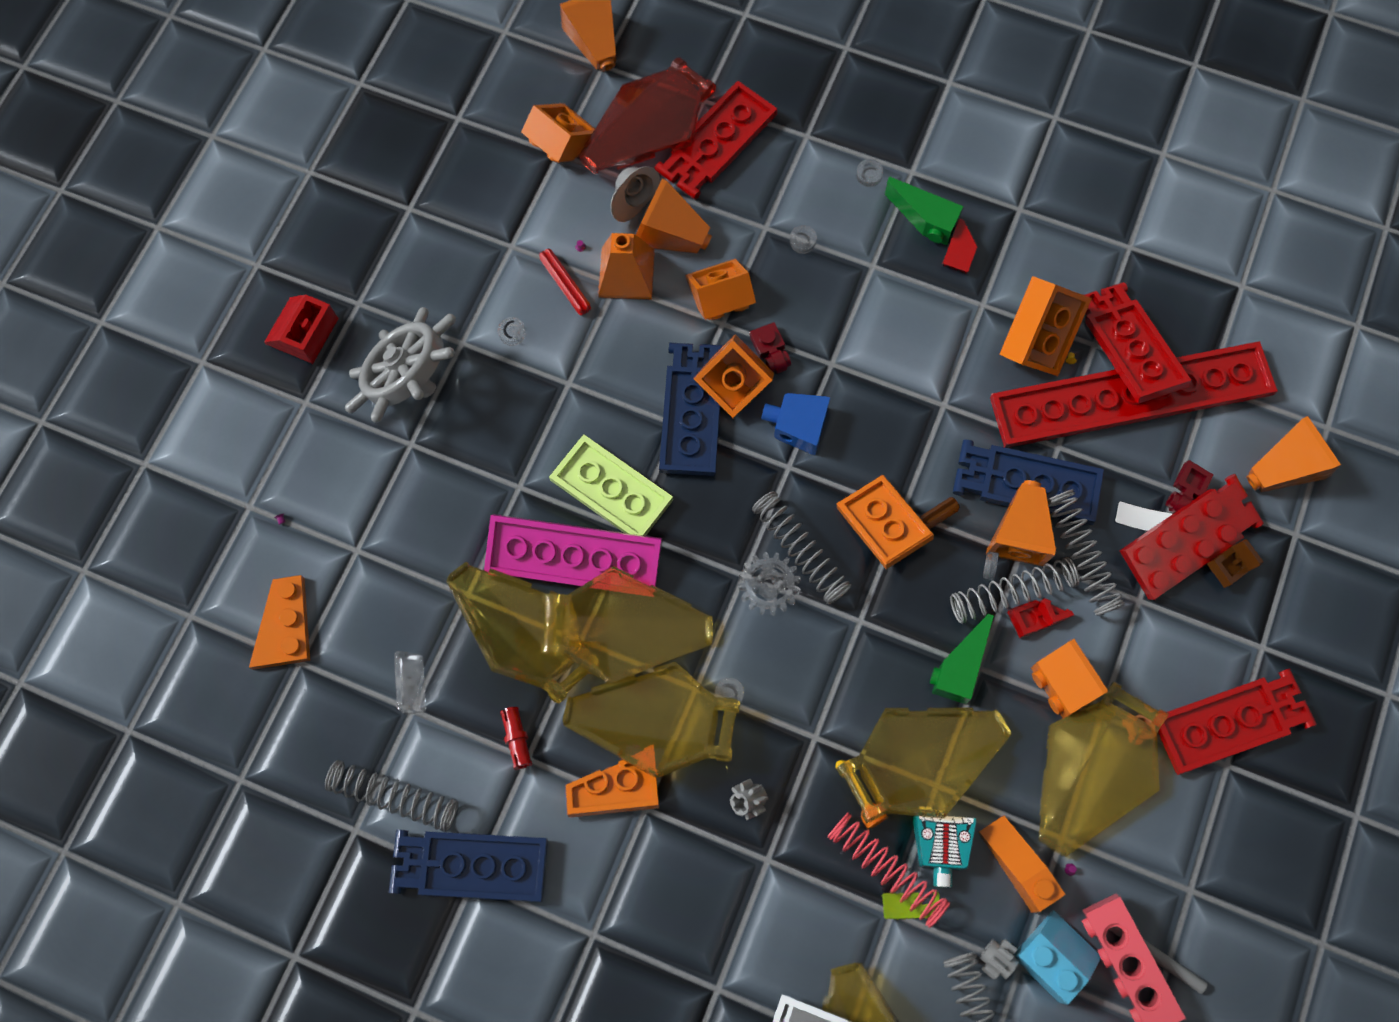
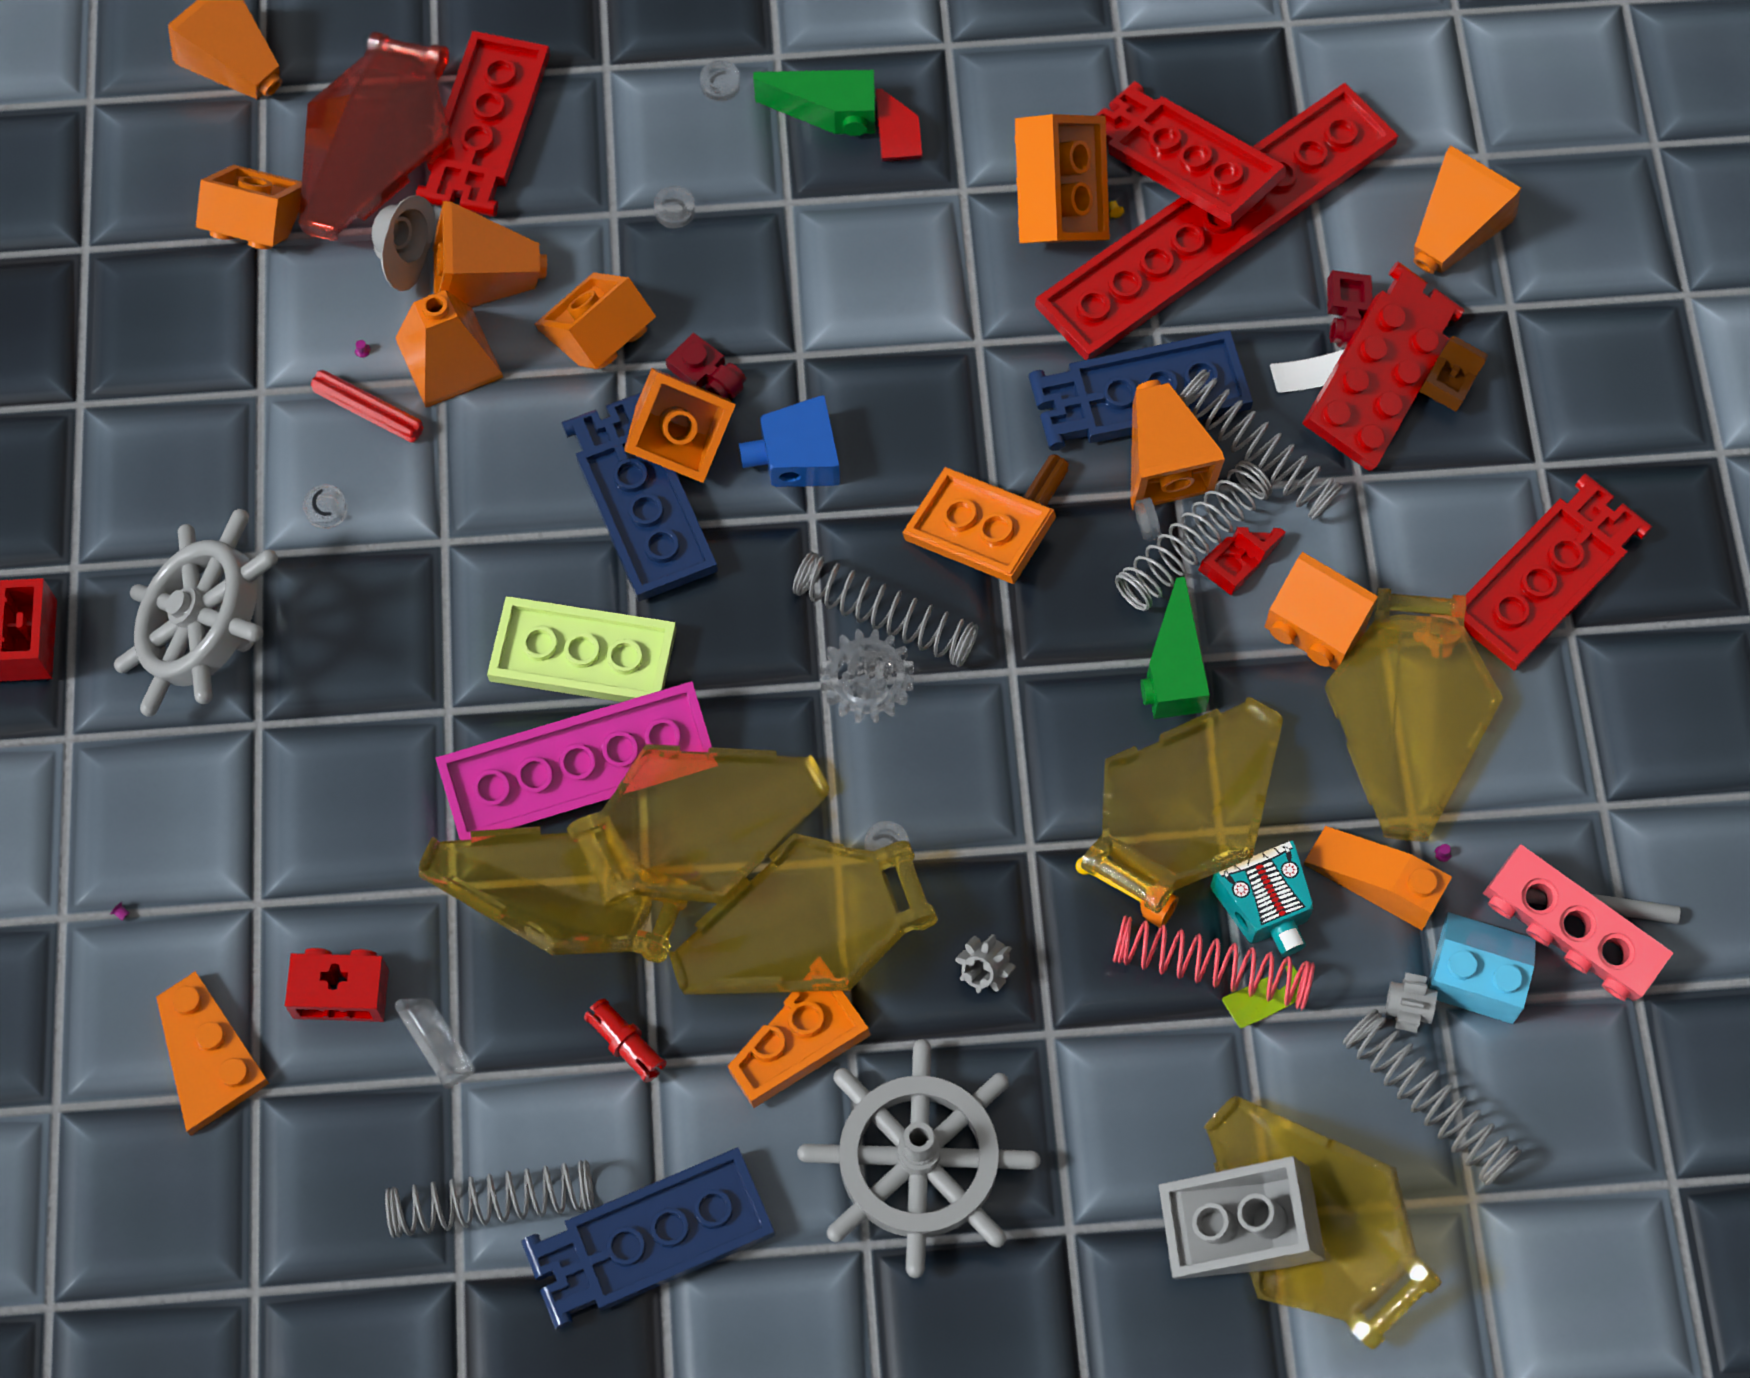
camera: 30 degrees left, 5 degrees down
(356, 618) = (356, 999): none -> red brick
(647, 900) = (918, 1157): none -> light grey piece

